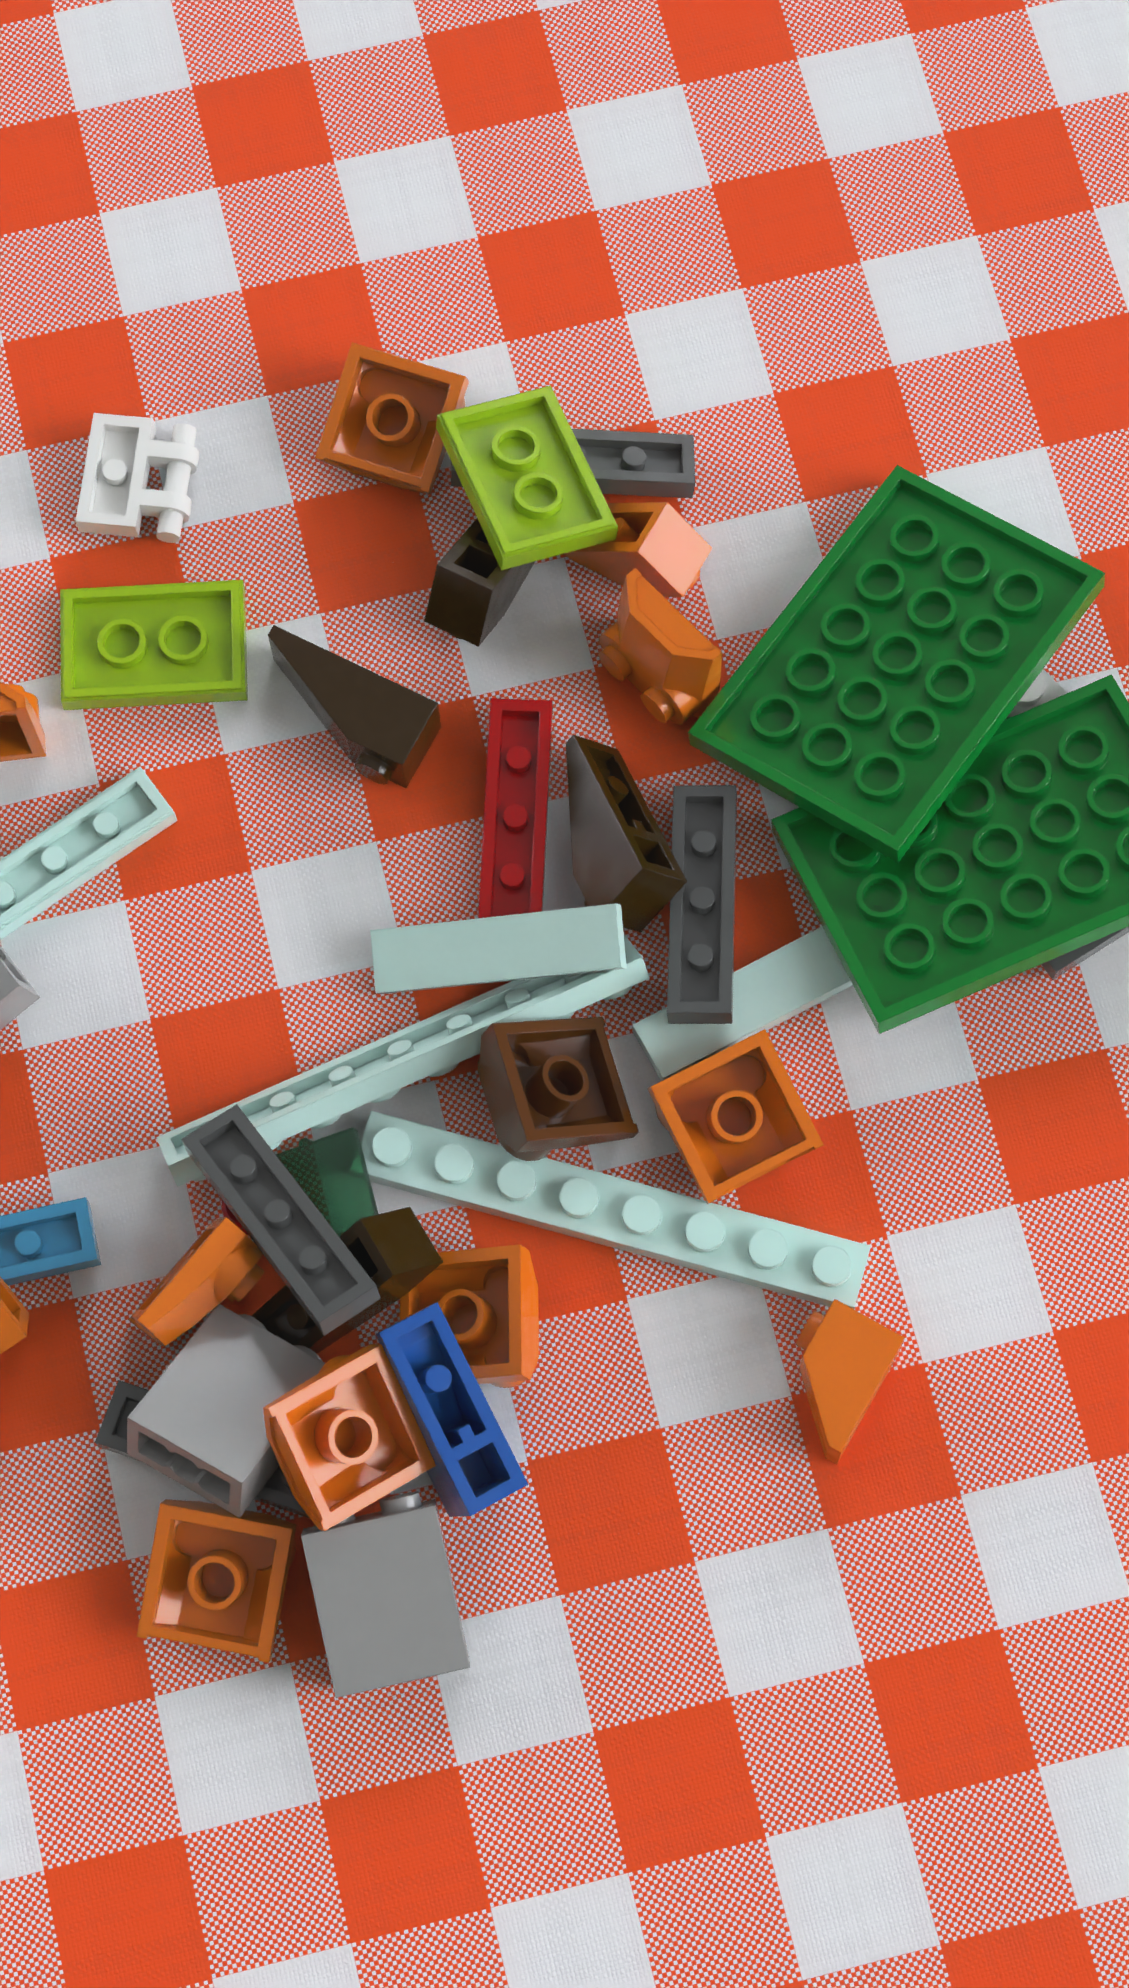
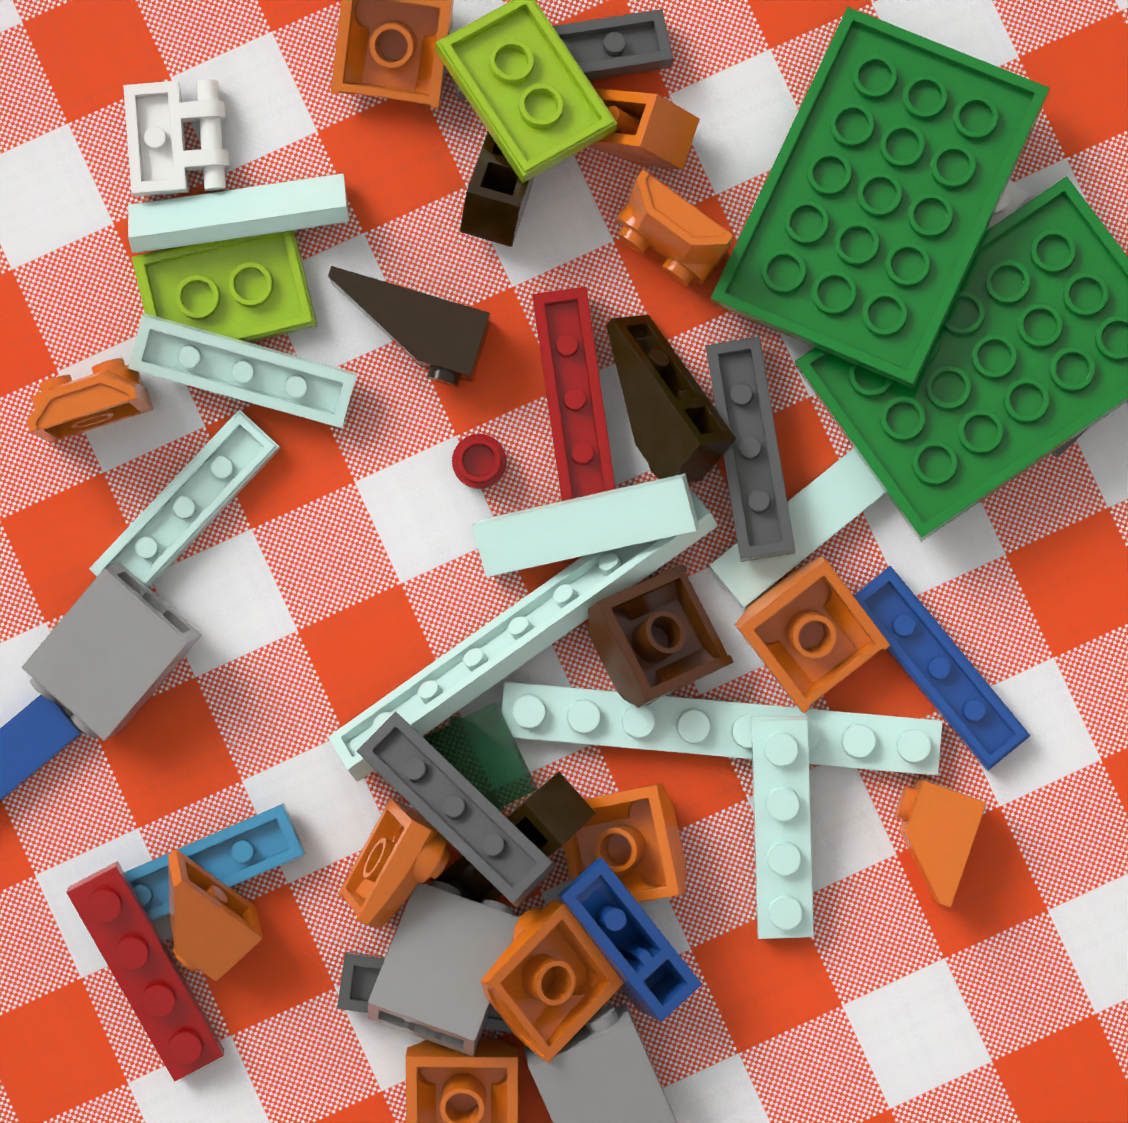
camera: 15 degrees left, 15 degrees up
(152, 721) = (242, 370): none -> light aqua plate
(186, 563) = (237, 213): none -> light aqua tile
(394, 868) = (479, 461): none -> red plate
(660, 1330) = (782, 826): none -> light aqua plate
(881, 1193) = (941, 670): none -> blue tile

